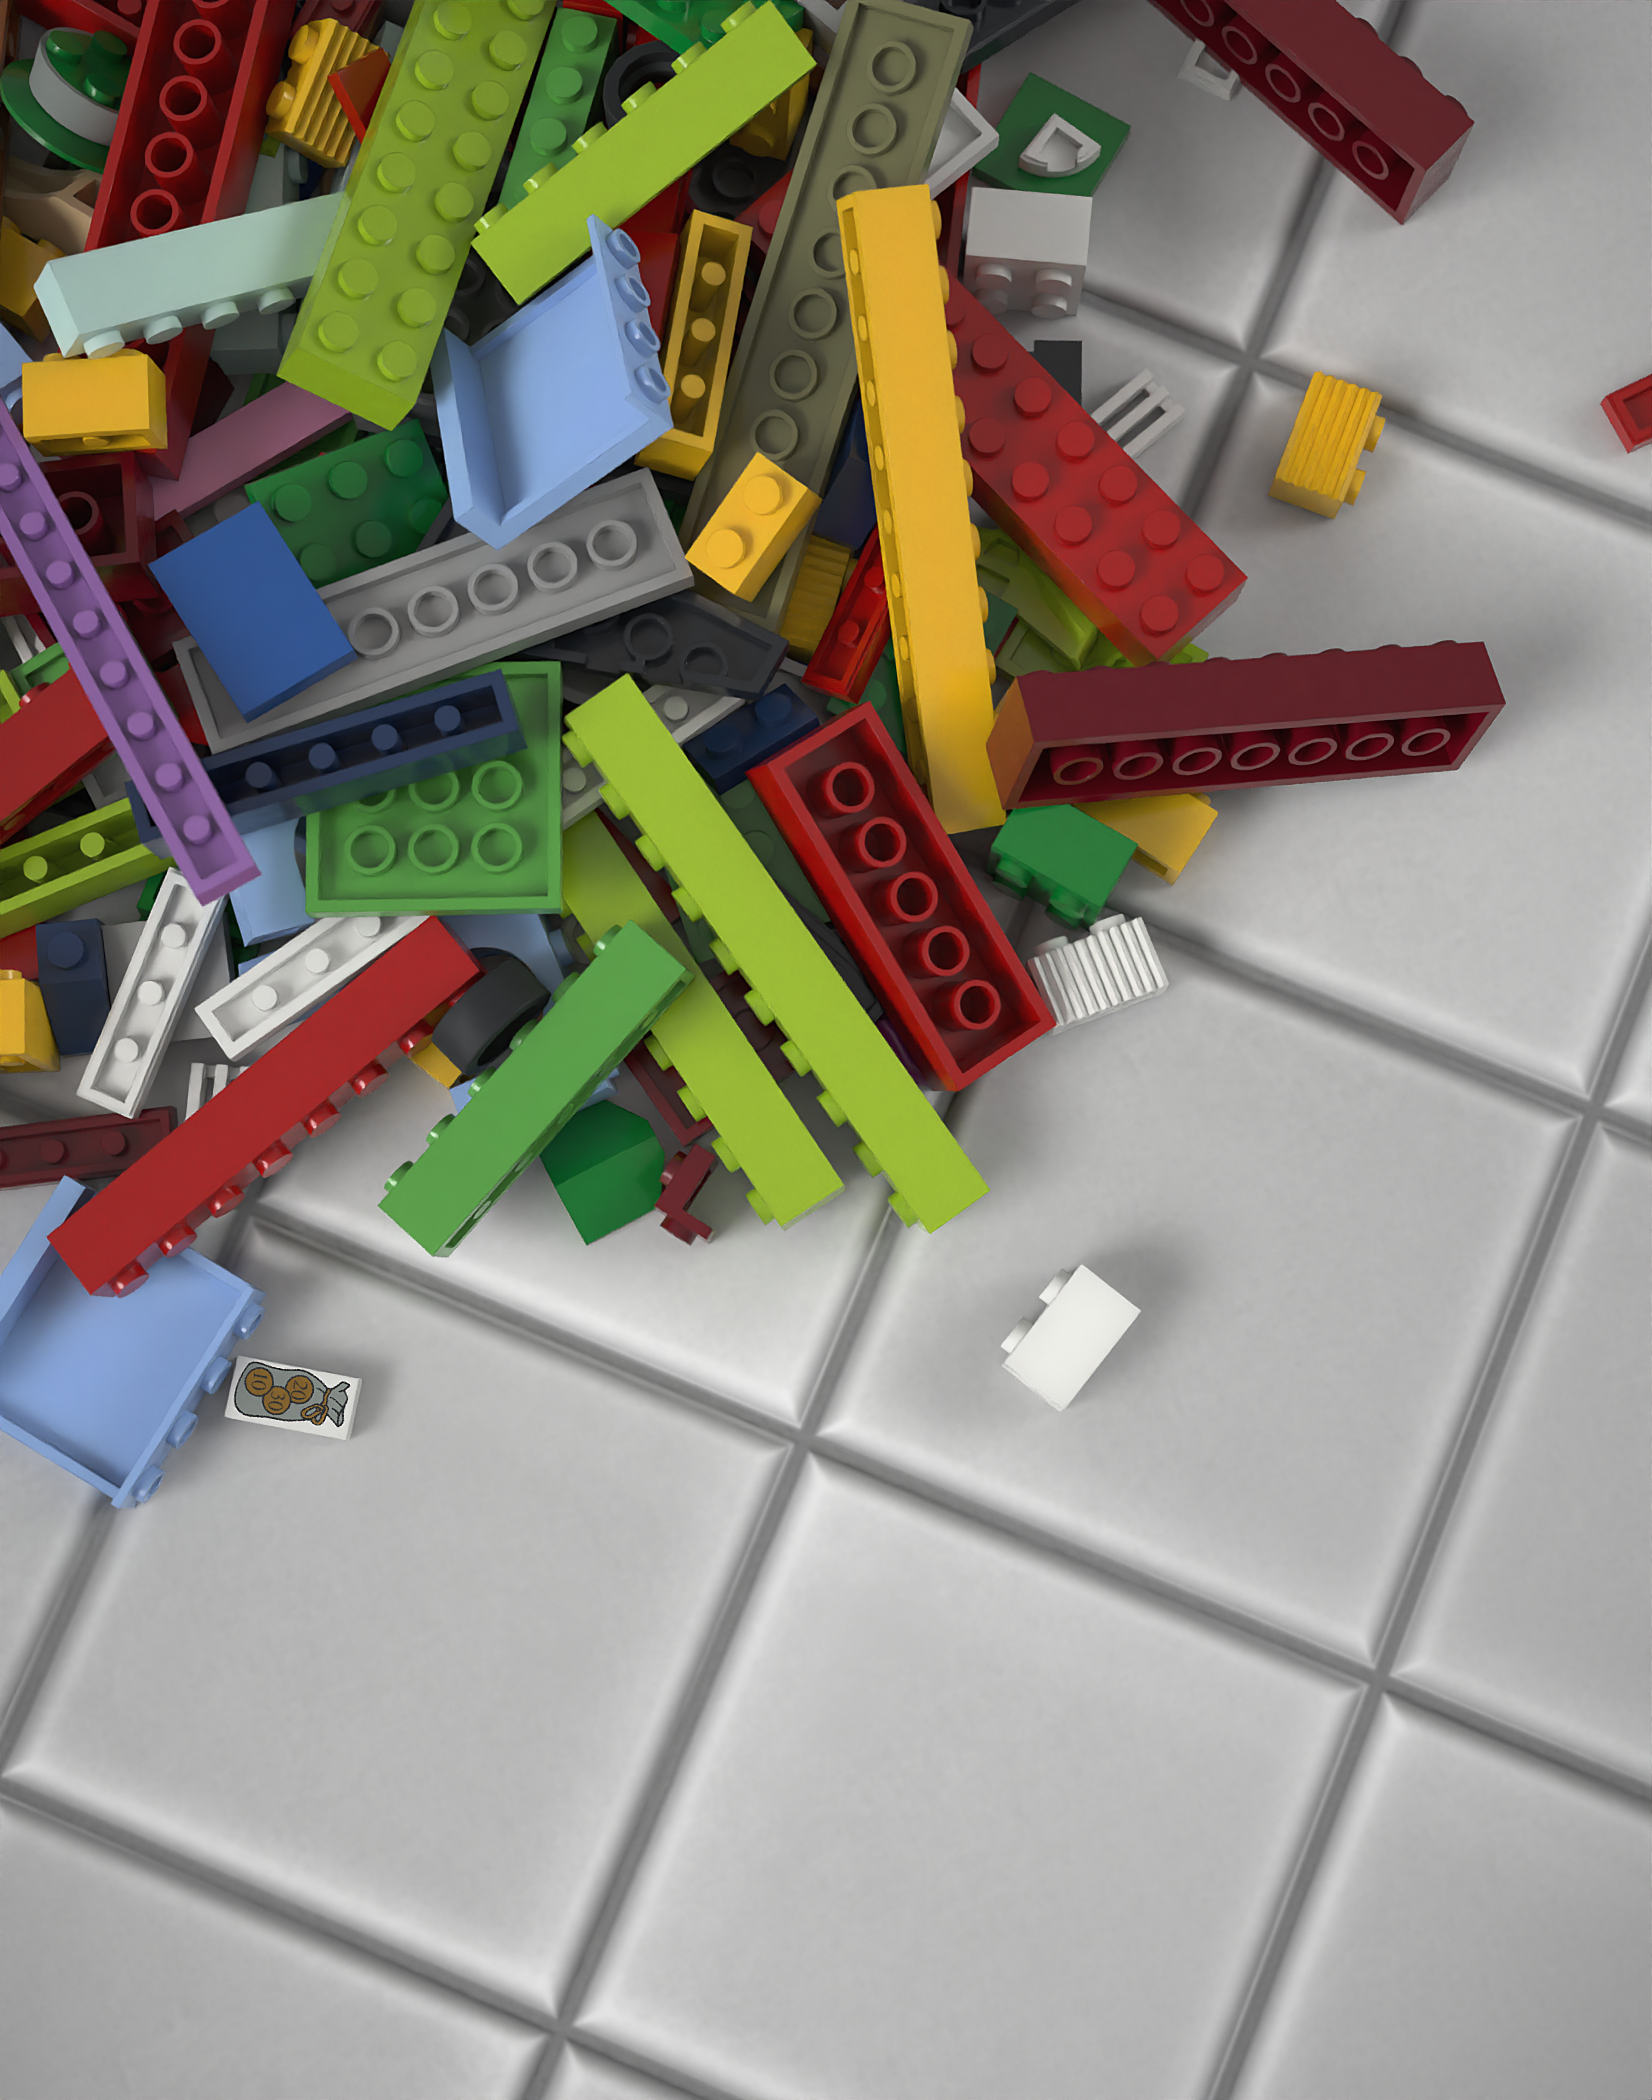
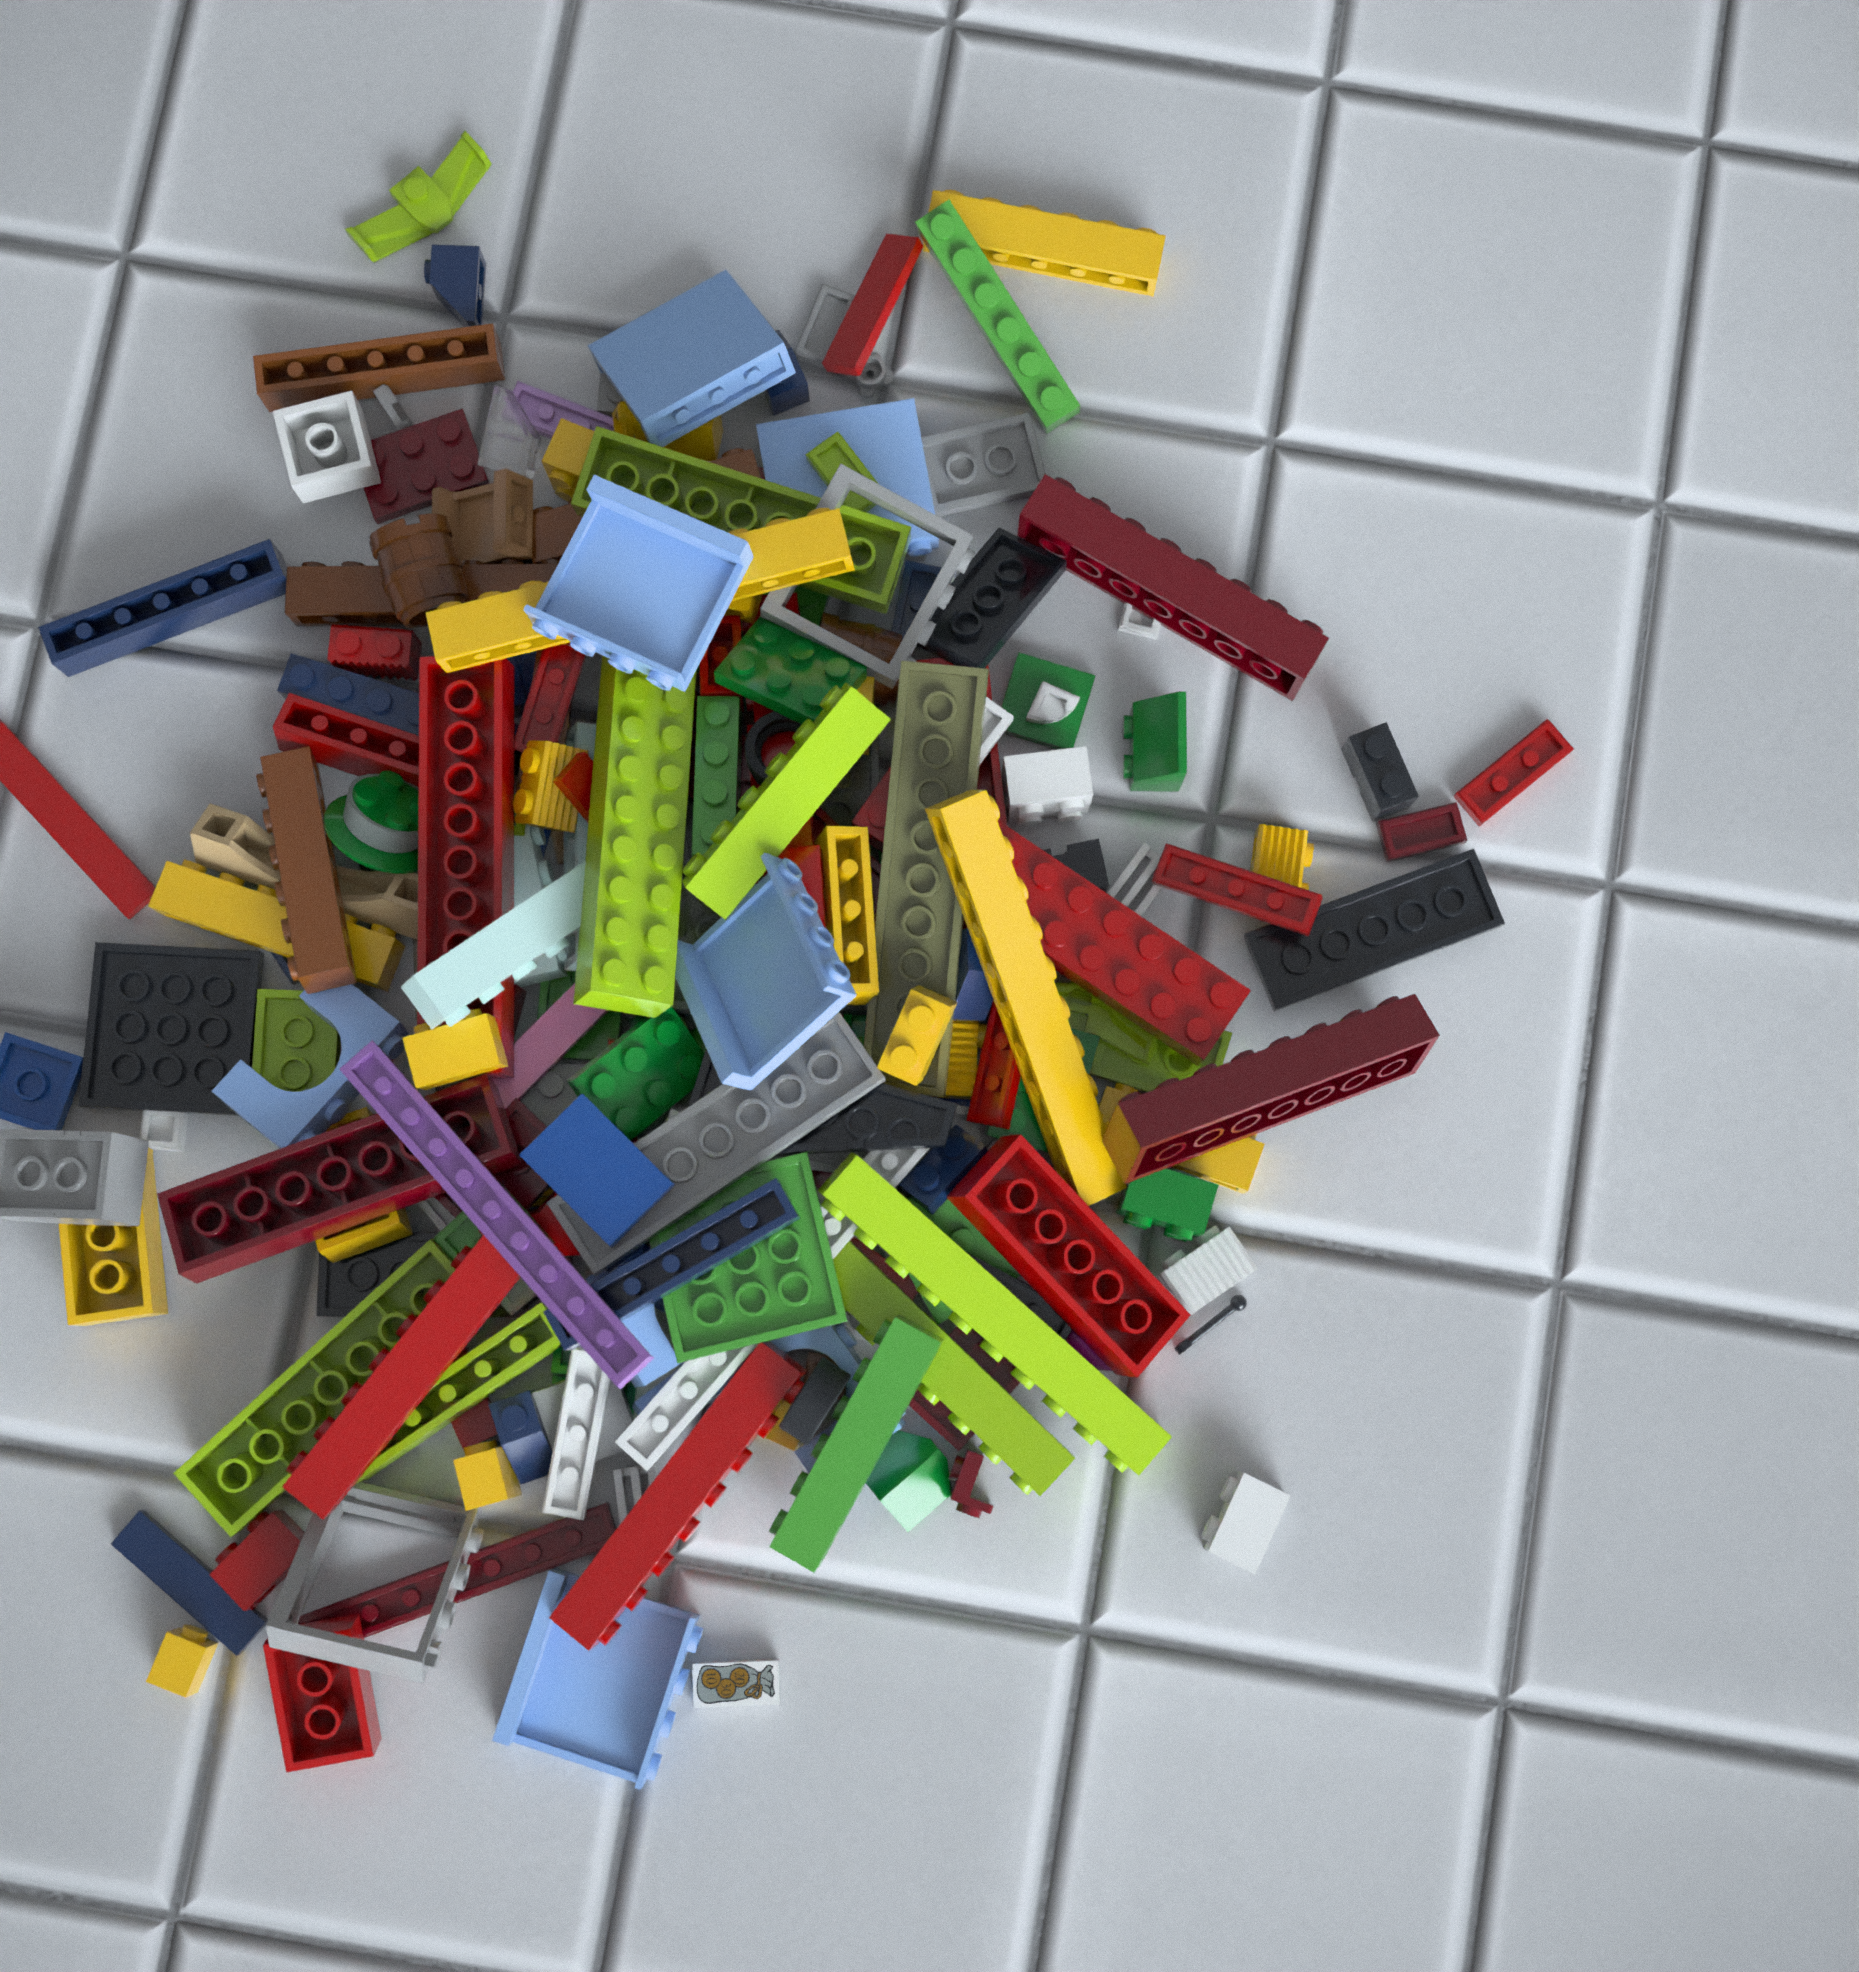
camera: 15 degrees left, 0 degrees up
(1129, 1034) = (1237, 1303): none -> black hinge
(1194, 231) = (1156, 743): none -> green slope
(1262, 452) = (1237, 889): none -> red tile
(1445, 558) = (1376, 930): none -> black plate
(1503, 340) = (1379, 771): none -> black brick
(1544, 441) = (1421, 832): none -> dark red tile

